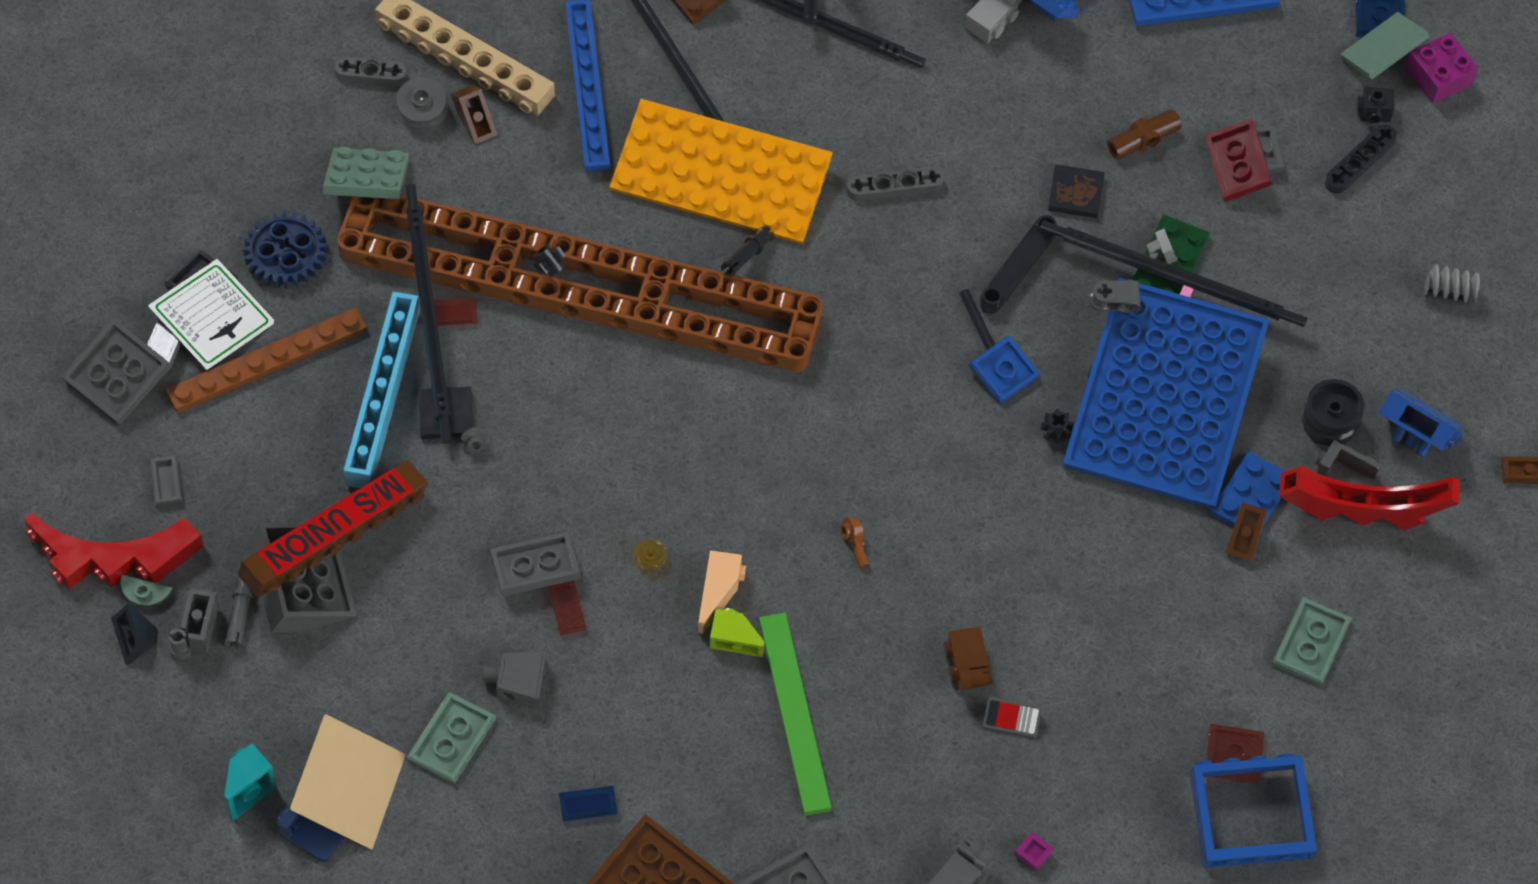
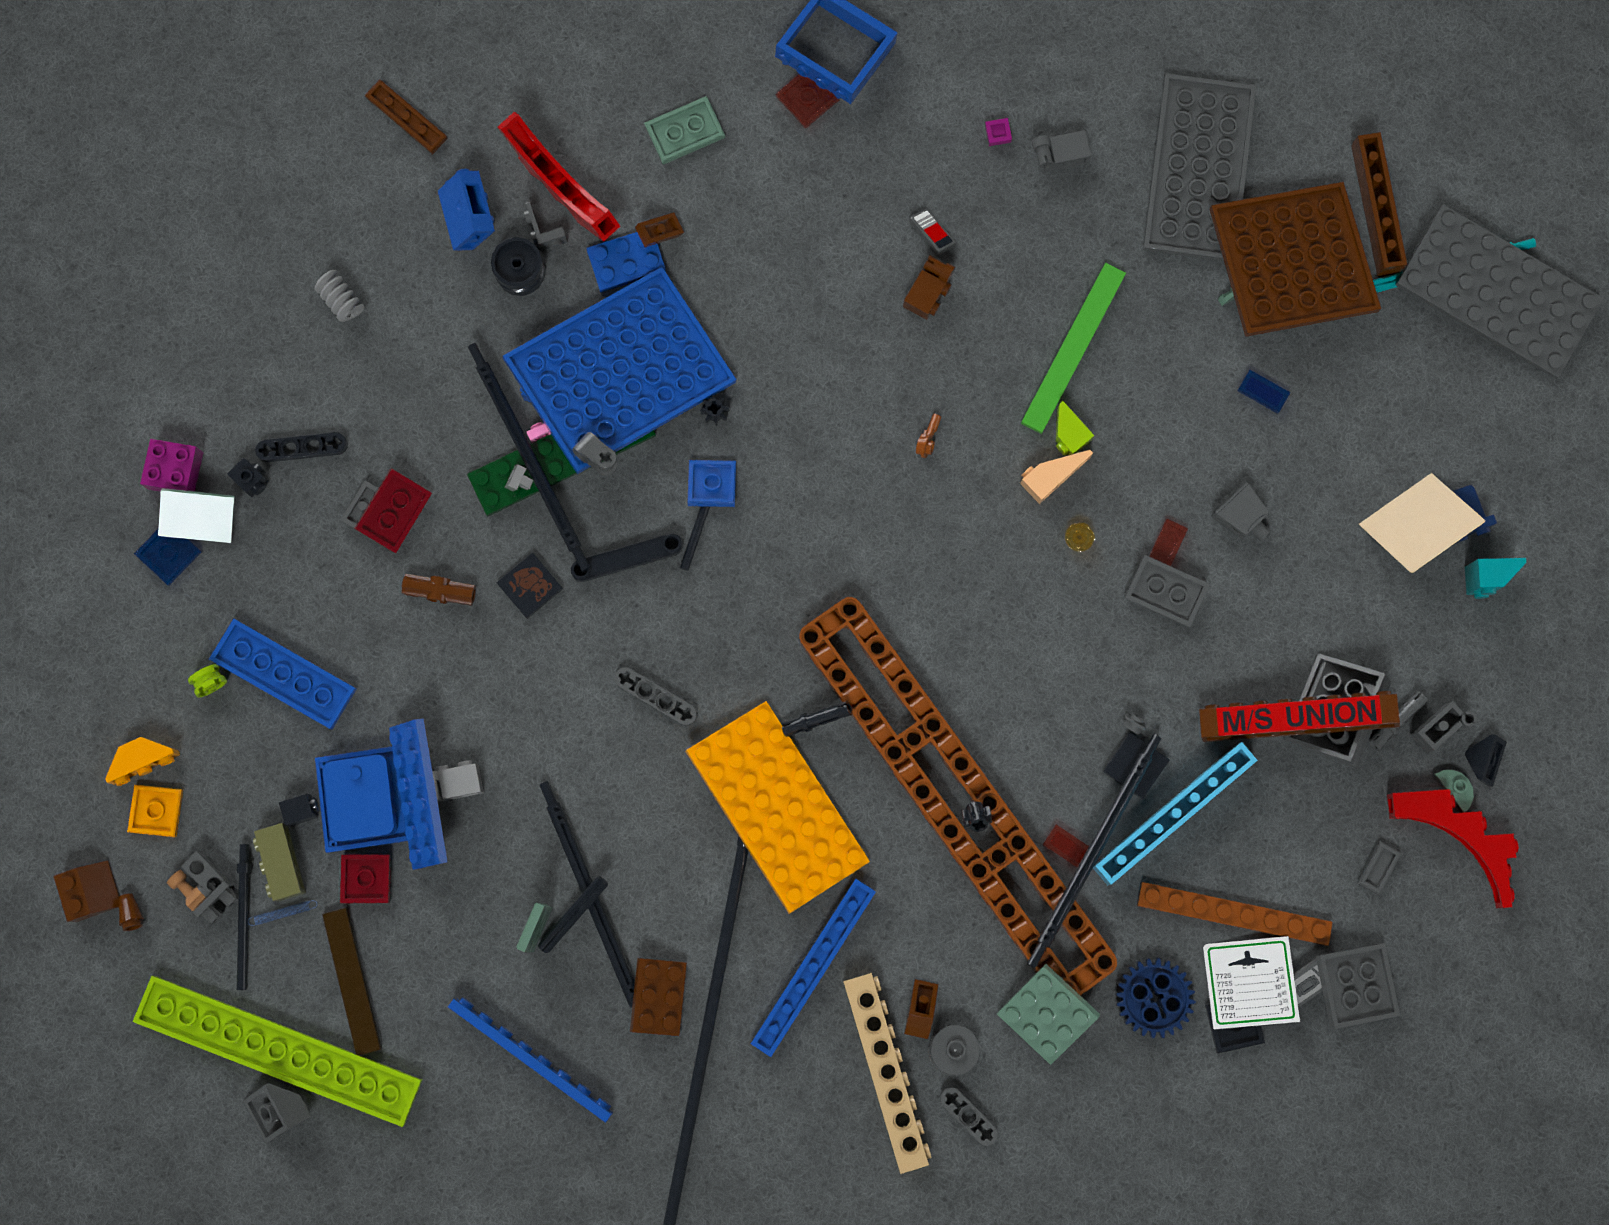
camera: 135 degrees left, 20 degrees up
(451, 738) = (1320, 510): sand green tile -> none

